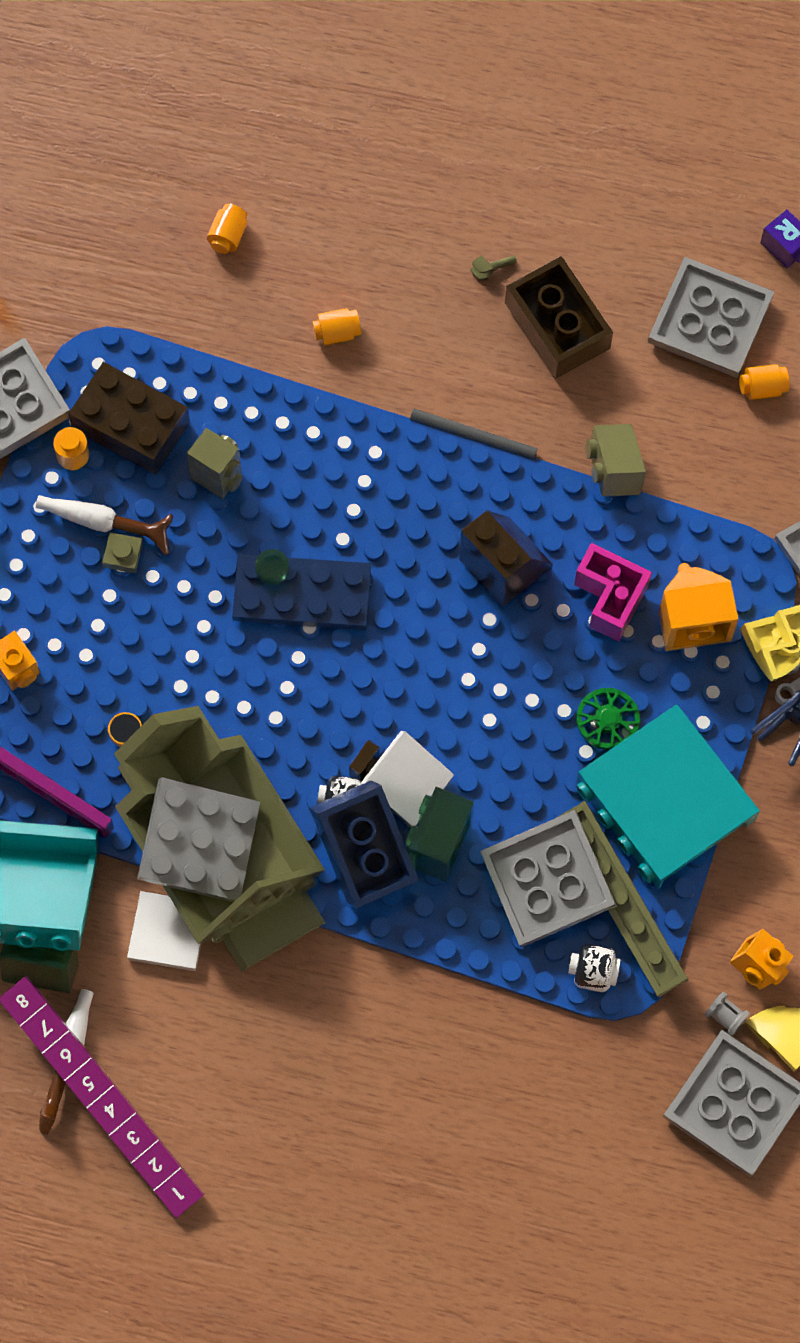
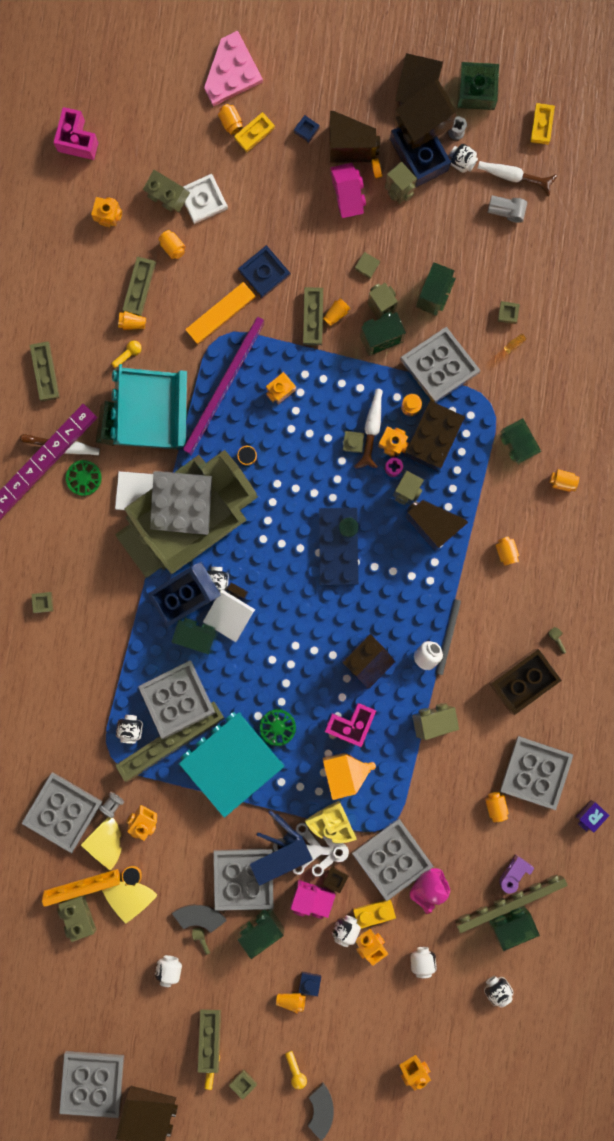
camera: 85 degrees right, 15 degrees up
(131, 482) = (393, 435): none -> light orange brick
(131, 1023) = (83, 477): none -> green wheel
(154, 288) = (520, 441): none -> clear green brick
(174, 478) = (399, 464): none -> magenta bush
(281, 427) = (434, 523): none -> dark brown slope
(353, 1111) = (42, 602): none -> olive plate
(503, 459) = (428, 655): none -> white head

